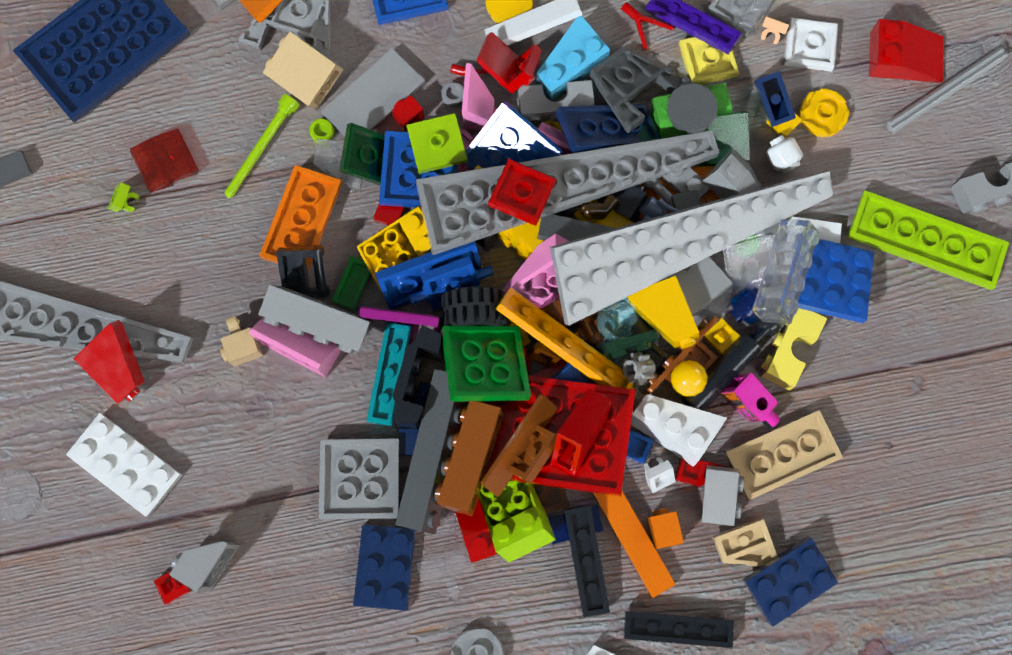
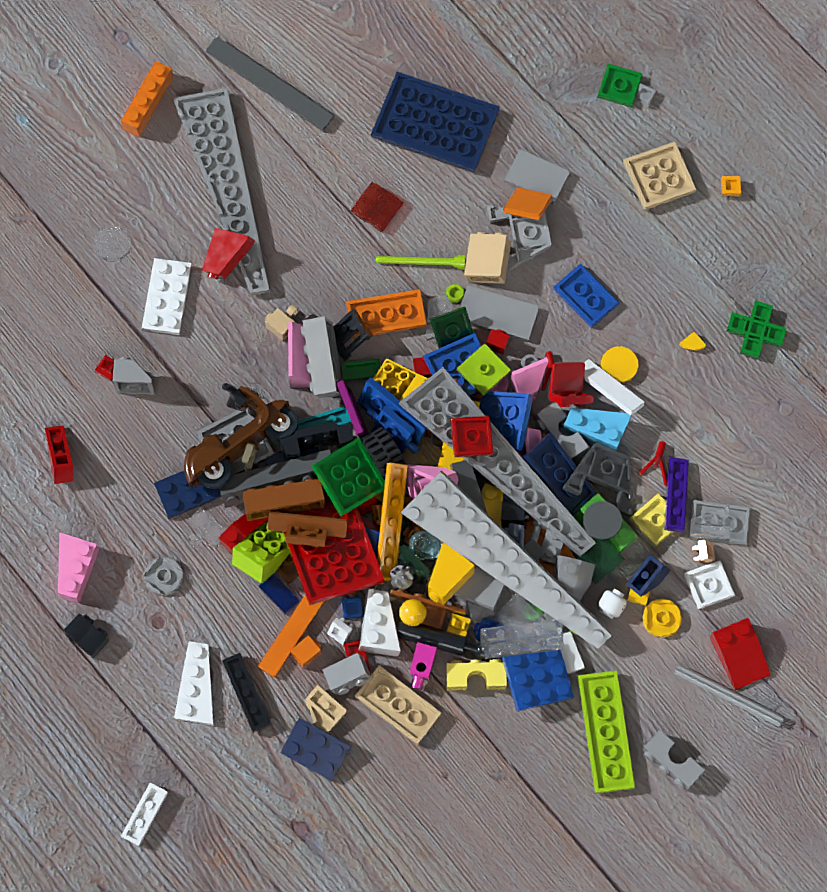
camera: 60 degrees right, 5 degrees down
(119, 198) = (335, 194): lime tile -> none
(369, 522) = (212, 458): none -> reddish brown piece
(580, 431) = (336, 555): red slope -> none
(586, 561) = (258, 611): black plate -> none
(599, 211) = (493, 496): dark brown arm -> none

